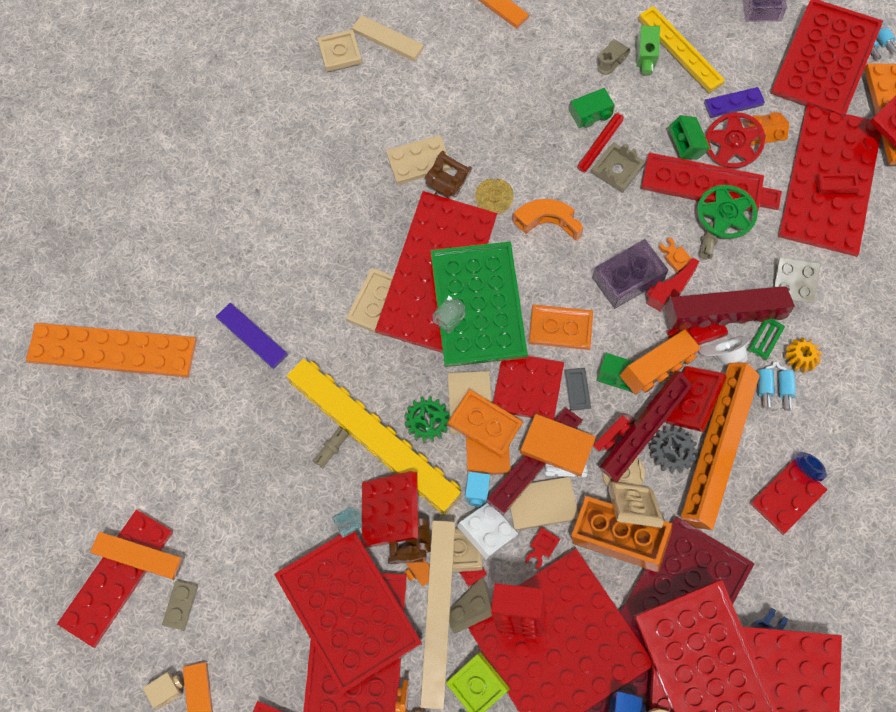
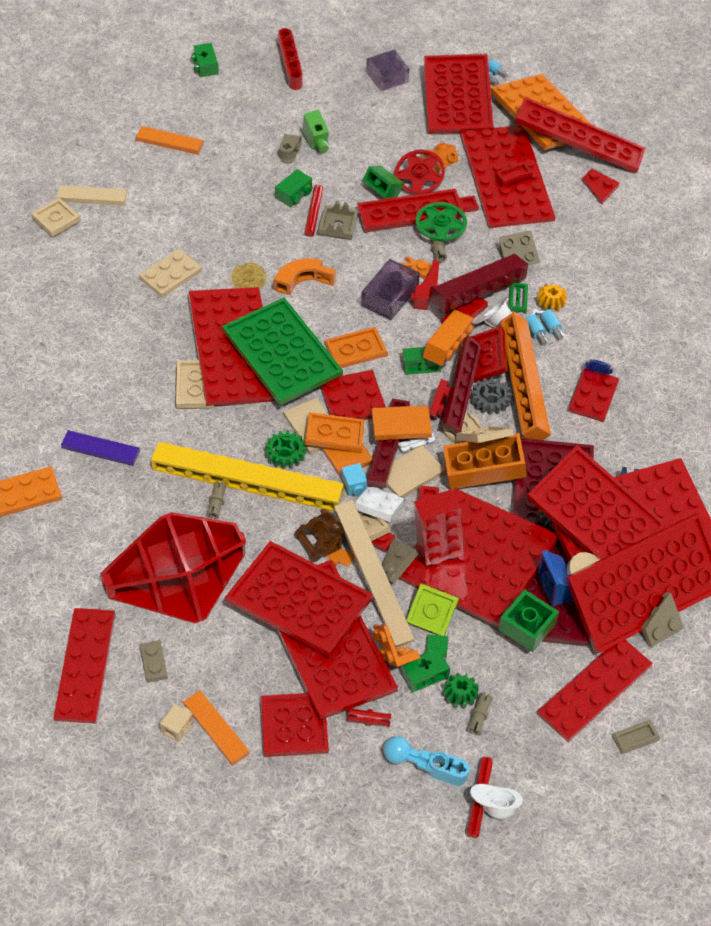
camera: 30 degrees left, 15 degrees down
(136, 555) = (96, 636): orange tile -> none
(251, 517) = (177, 566): none -> red panel
(347, 522) = (262, 540): clear light blue tile -> none
(390, 510) = (293, 516): red plate -> none
(443, 181) = (203, 279): reddish brown piece -> none
(449, 314) = (265, 362): clear brick -> none
(577, 389) = (393, 384): dark grey tile -> none
(683, 50) = (346, 126): yellow plate -> none
(734, 102) = (410, 143): dark purple plate -> none

